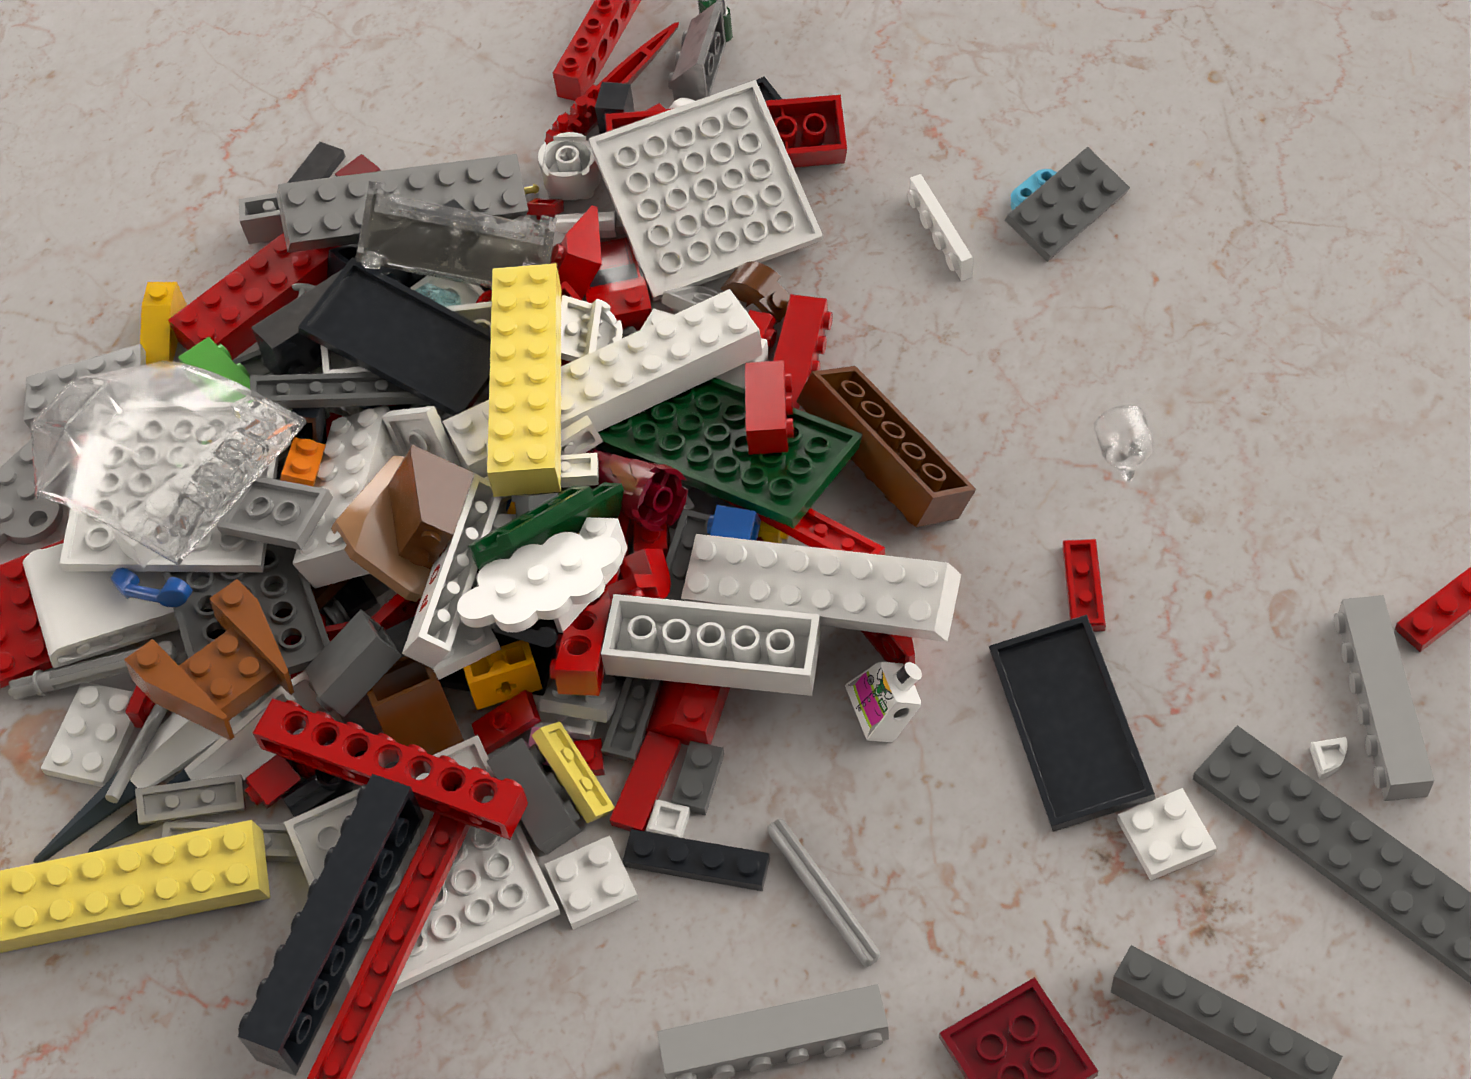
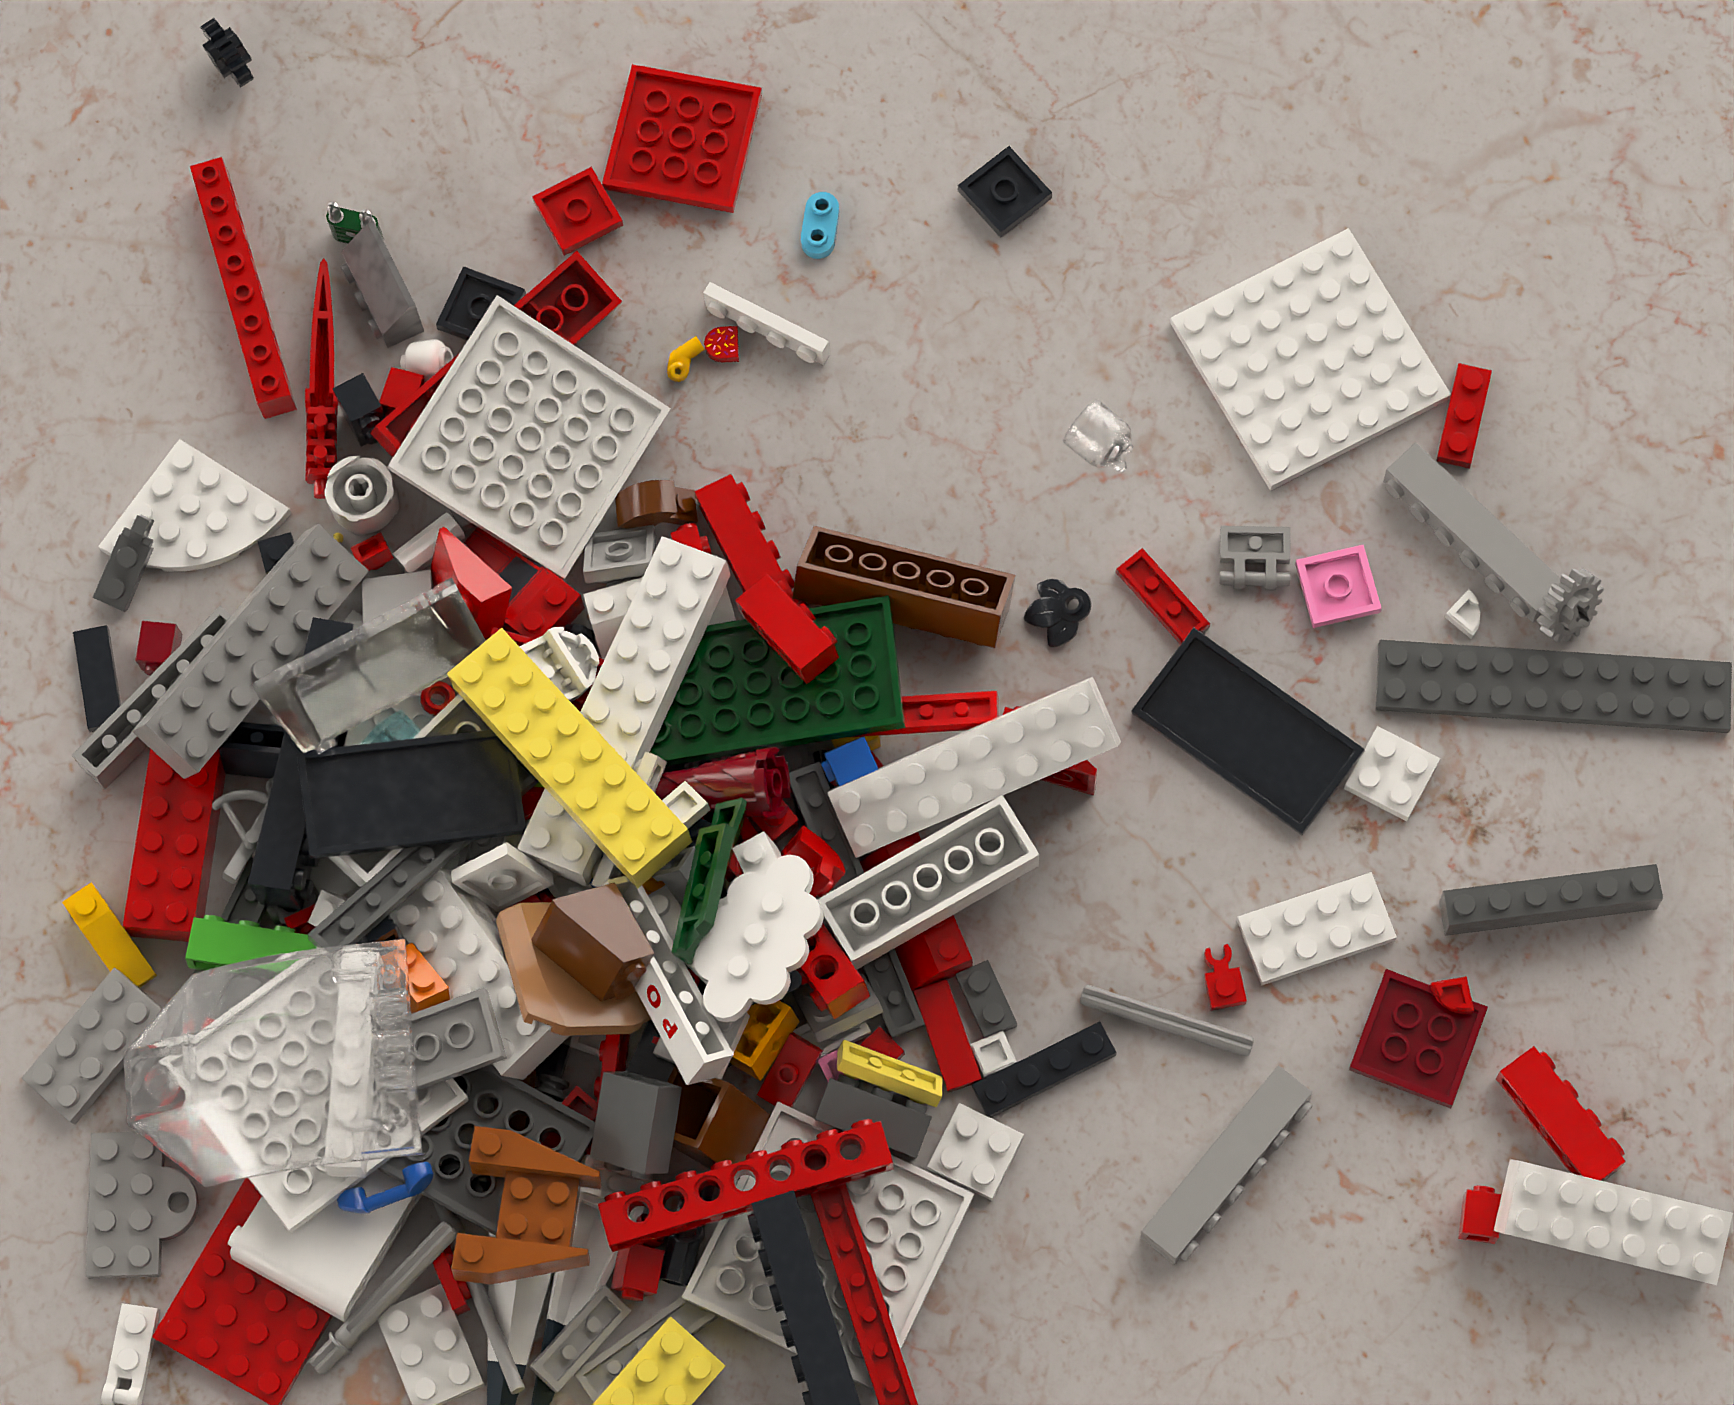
camera: 40 degrees left, 15 degrees up
(387, 120) = (126, 565): none -> dark grey hinge
(455, 121) = (199, 513): none -> white plate
(862, 216) = (681, 357): none -> yellow arm
(872, 88) = (577, 211): none -> red plate
(885, 699) = (1092, 822): white torso -> none
(893, 897) = (1223, 984): none -> red plate
(900, 224) = (722, 344): none -> red tile
(984, 86) = (682, 138): none -> red plate
(991, 542) = (1053, 613): none -> black plate
(1004, 909) = (1316, 928): none -> white plate
(1067, 204) = (862, 221): dark grey plate -> none
(1075, 1038) = (1454, 995): none -> red tile
(1187, 592) = (1254, 546): none -> light grey plate
(1191, 244) = (1004, 191): none -> black plate
(1233, 664) = (1338, 586): none -> bright pink plate
(1345, 494) = (1310, 359): none -> white plate
(1425, 799) = (1570, 605): none -> light grey gear

